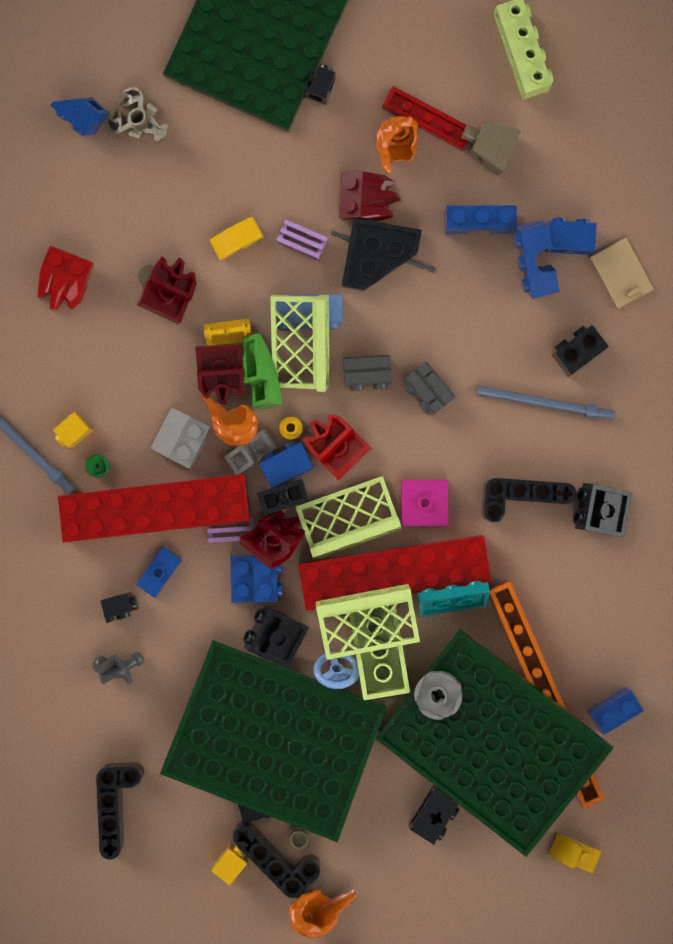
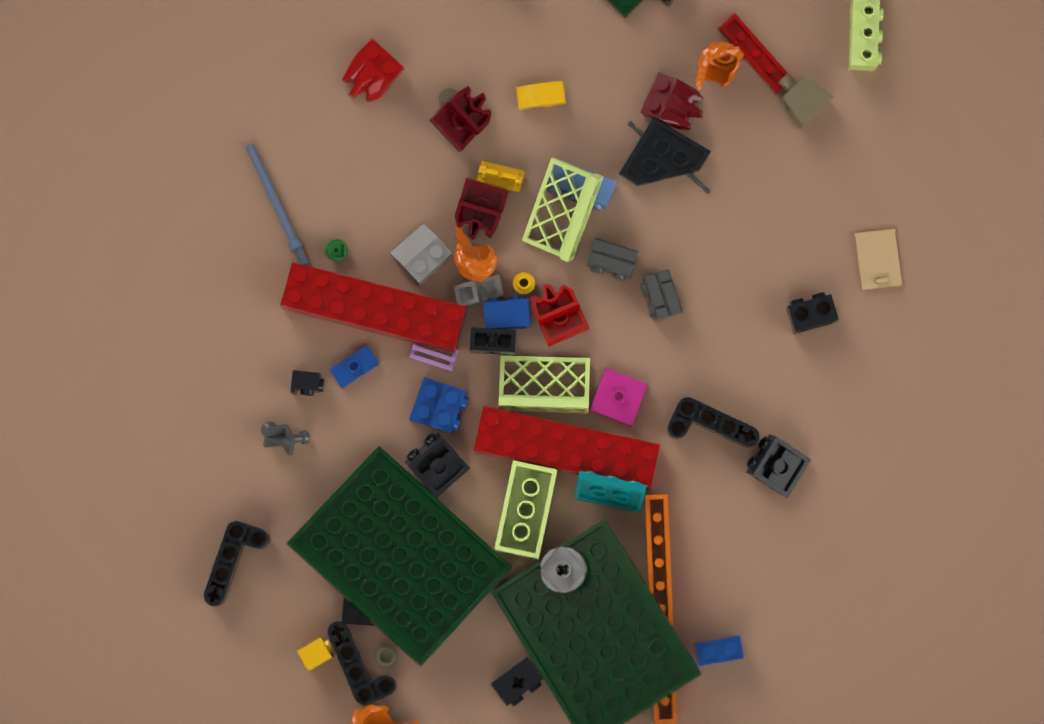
camera: 25 degrees right, 5 degrees down
(72, 430) = (326, 210): yellow brick -> none
(260, 373) = (515, 223): bright green slope -> none
(273, 539) = (469, 375): dark red plate -> none
(280, 239) = (586, 105): lavender tile -> none
(337, 675) = (479, 520): light blue piece -> none
(365, 601) = (526, 459): yellowish green fence -> none
(491, 218) = (778, 165): blue arch -> none
(531, 240) = (804, 197): blue arch -> none
(572, 237) = (843, 209): blue brick -> none
(588, 410) = (800, 371): sand blue bar -> none

